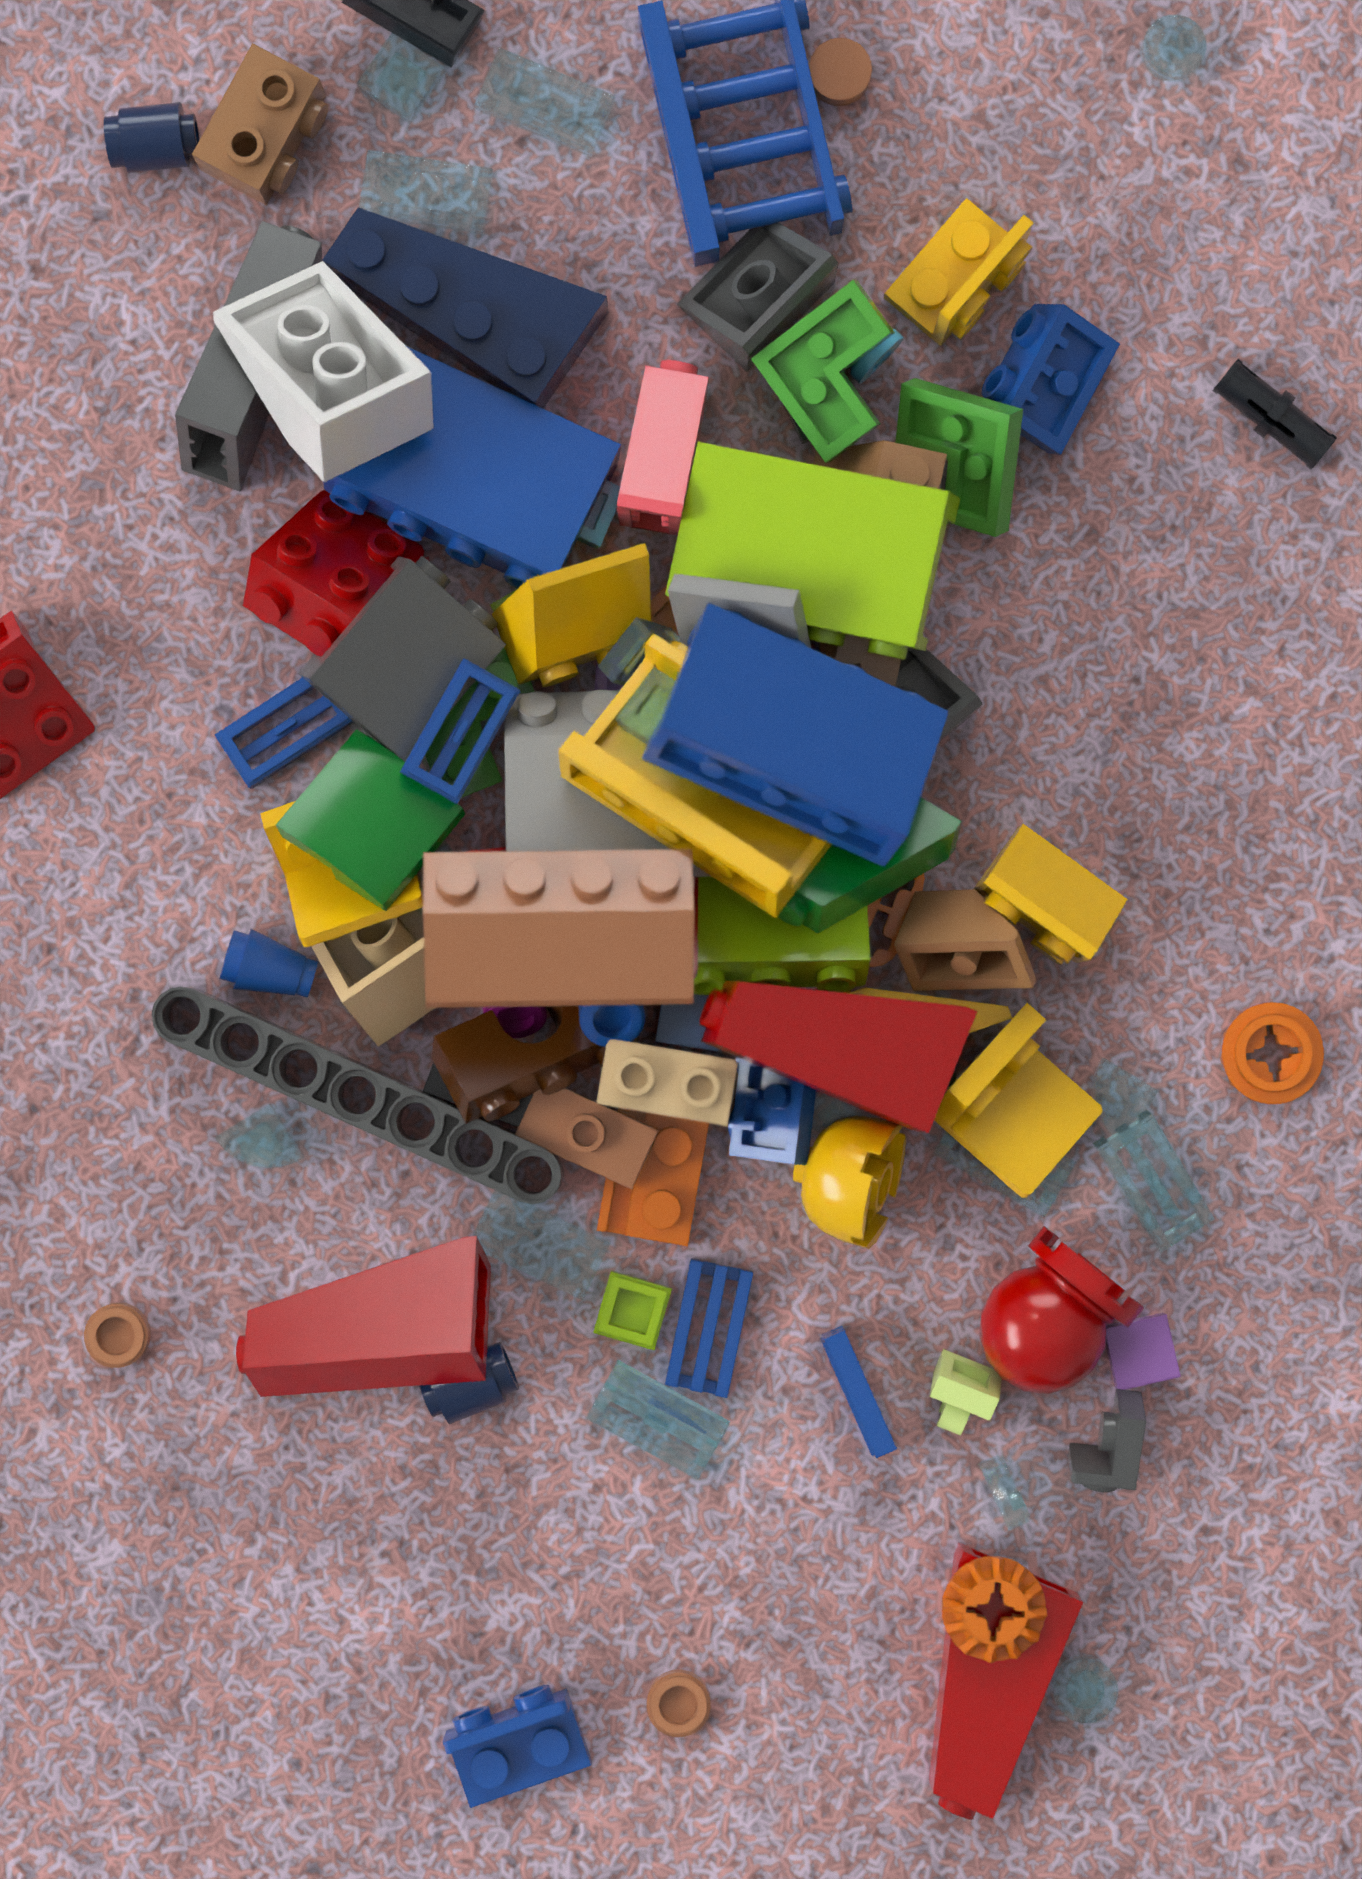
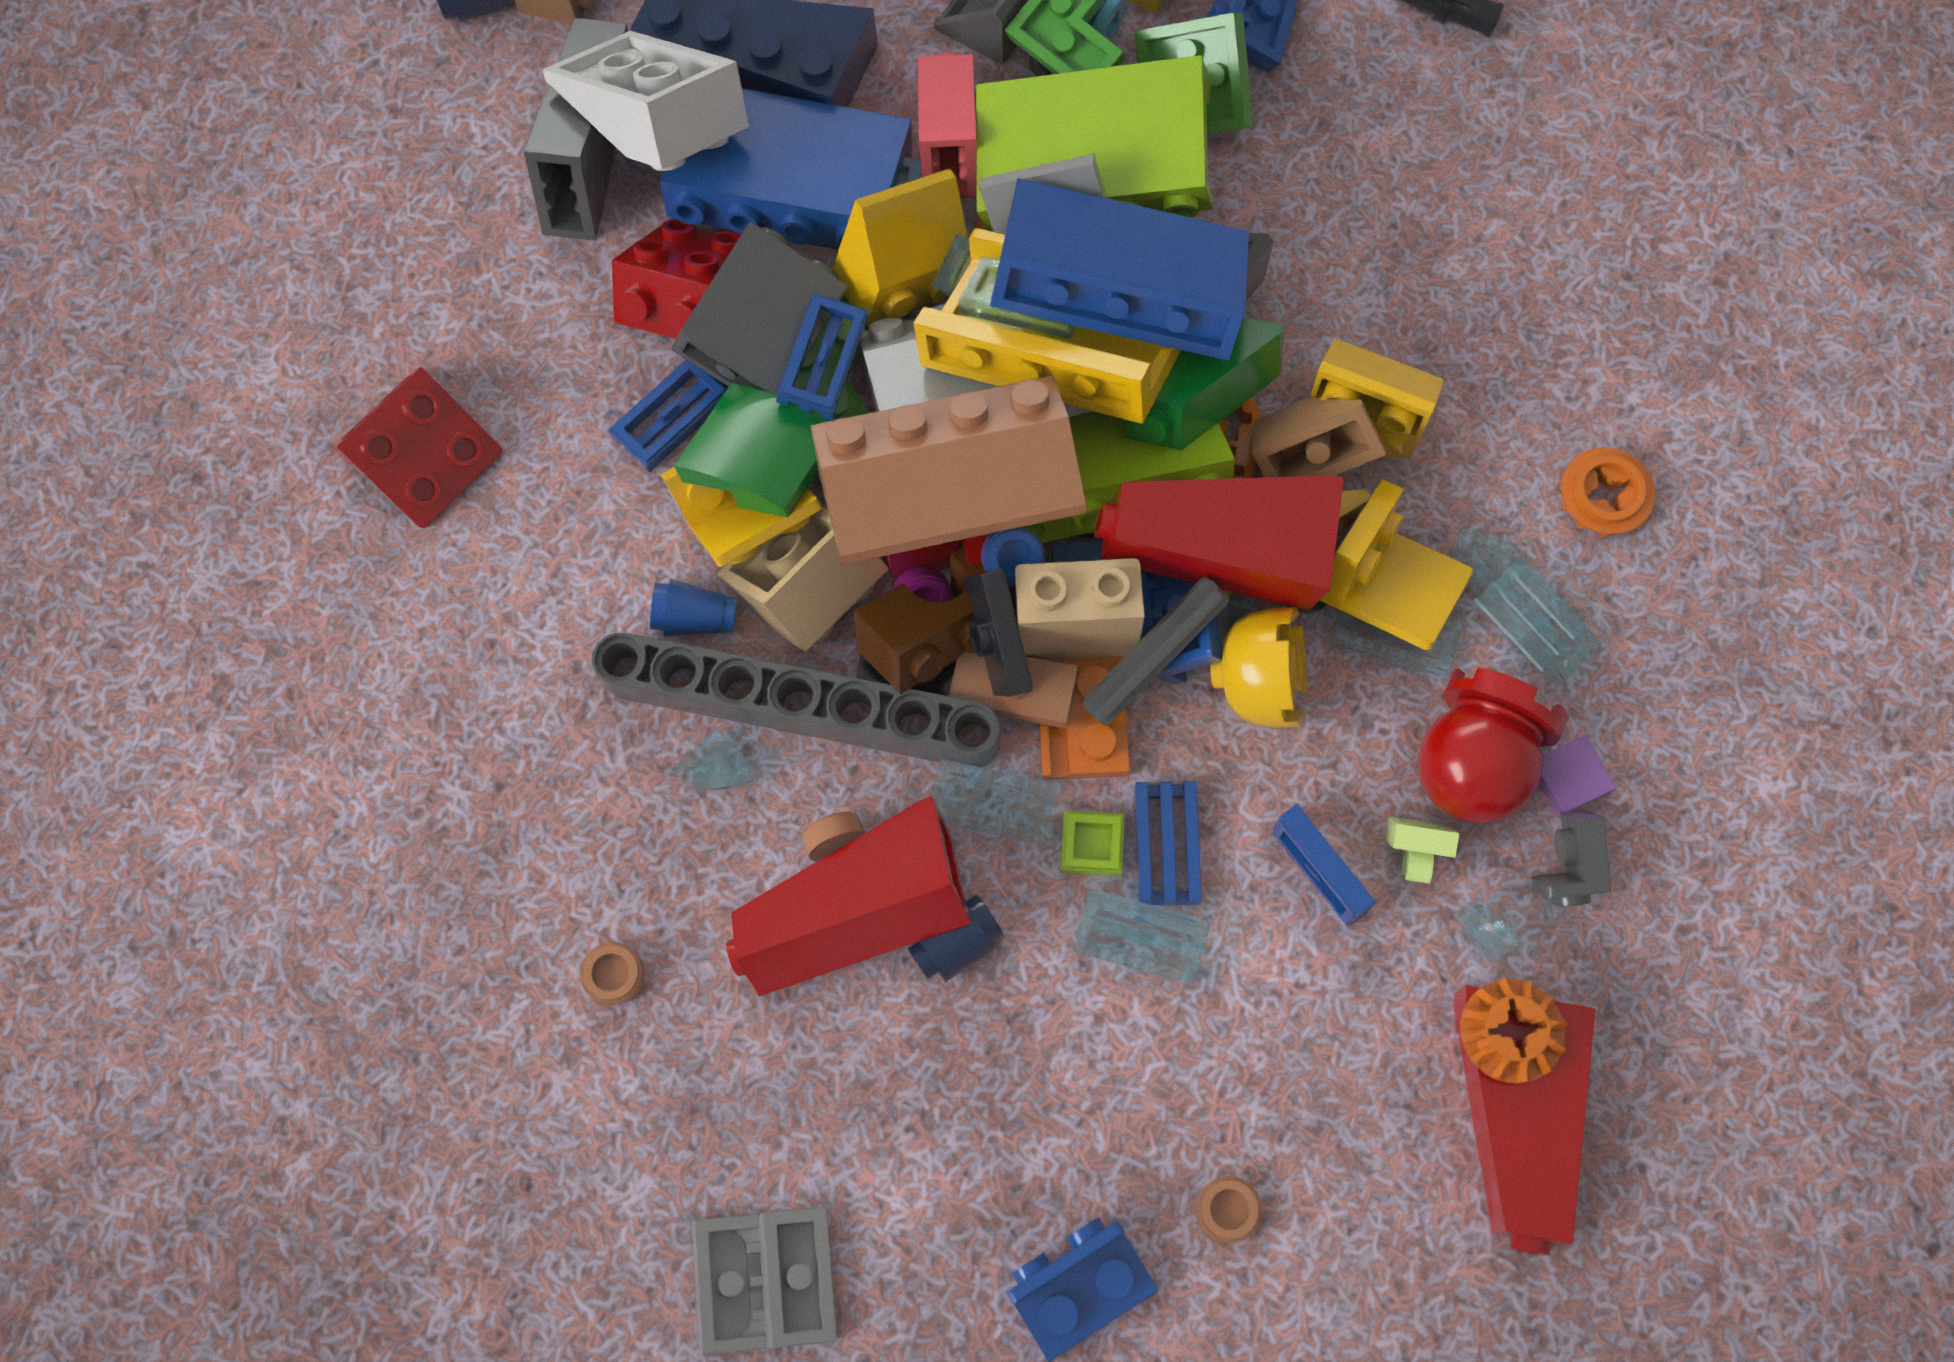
camera: 15 degrees left, 15 degrees down
(212, 1670) = (763, 1281): none -> light grey slope
(367, 1247) = (831, 834): none -> nougat tile
(574, 1098) = (997, 634): none -> black plate
(739, 1142) = (1156, 650): none -> dark grey axle
(1084, 1689) = (1618, 1105): clear light blue tile -> none

